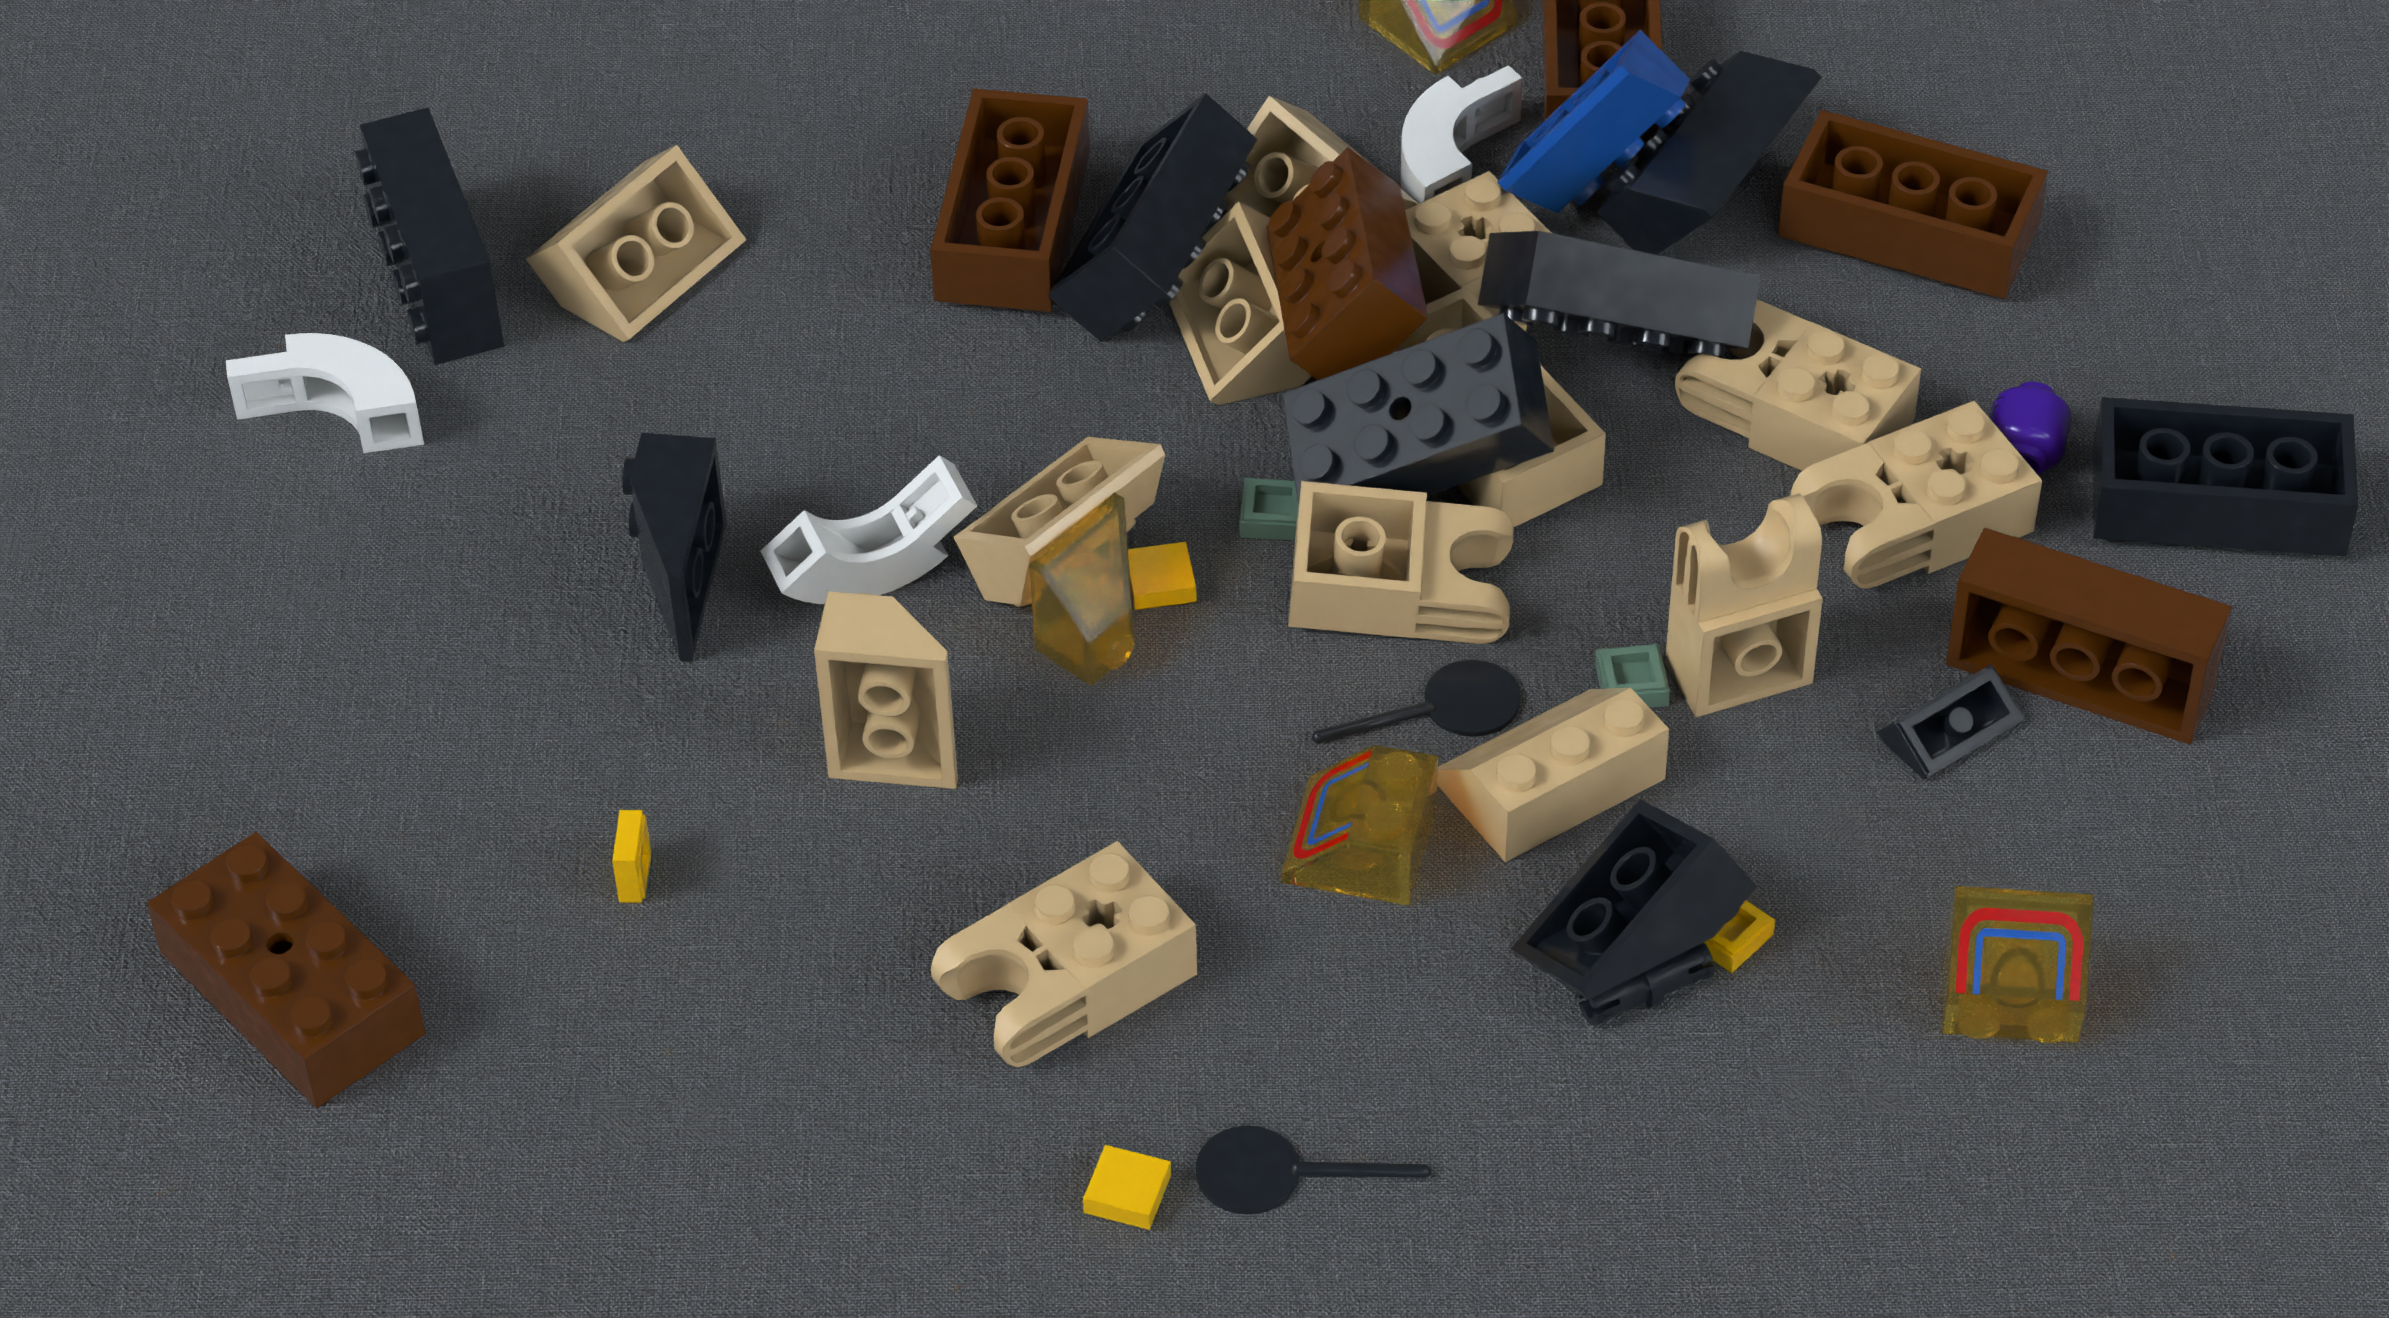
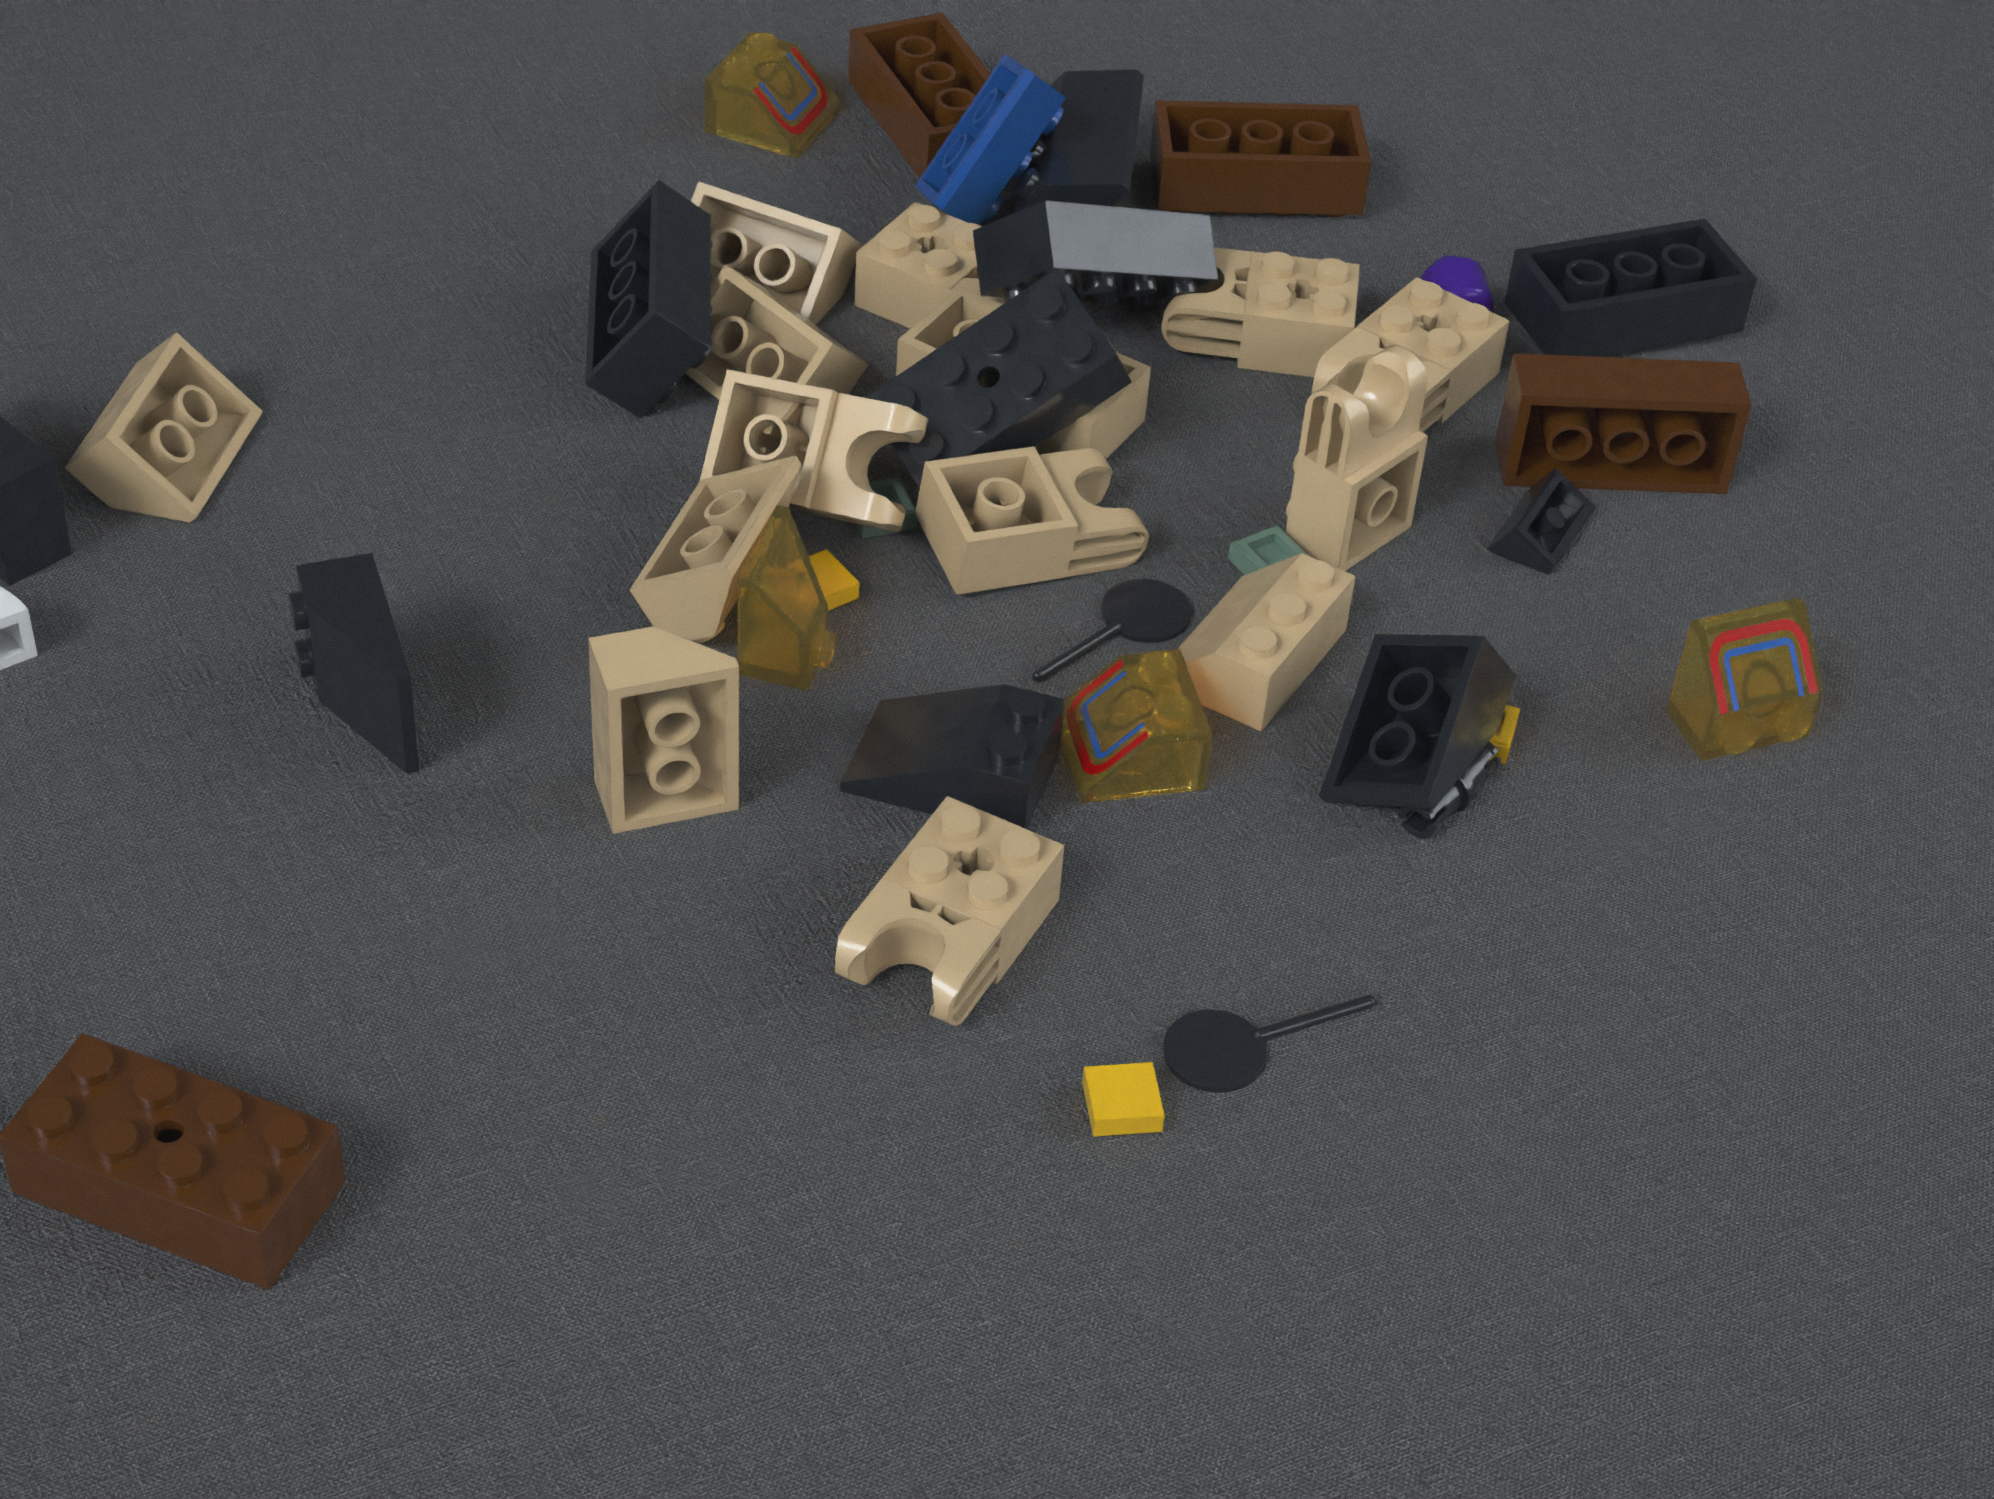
camera: 30 degrees left, 5 degrees down
(631, 856) = (474, 950): yellow tile -> none
(872, 550) = (553, 624): white arch -> none
(1010, 200) = (506, 318): reddish brown brick -> none
(1185, 801) = (967, 744): none -> black slope
(1209, 428) = (825, 430): none -> tan brick
(1345, 268) = (860, 289): reddish brown brick -> none
(1449, 122) = (846, 182): white arch -> none

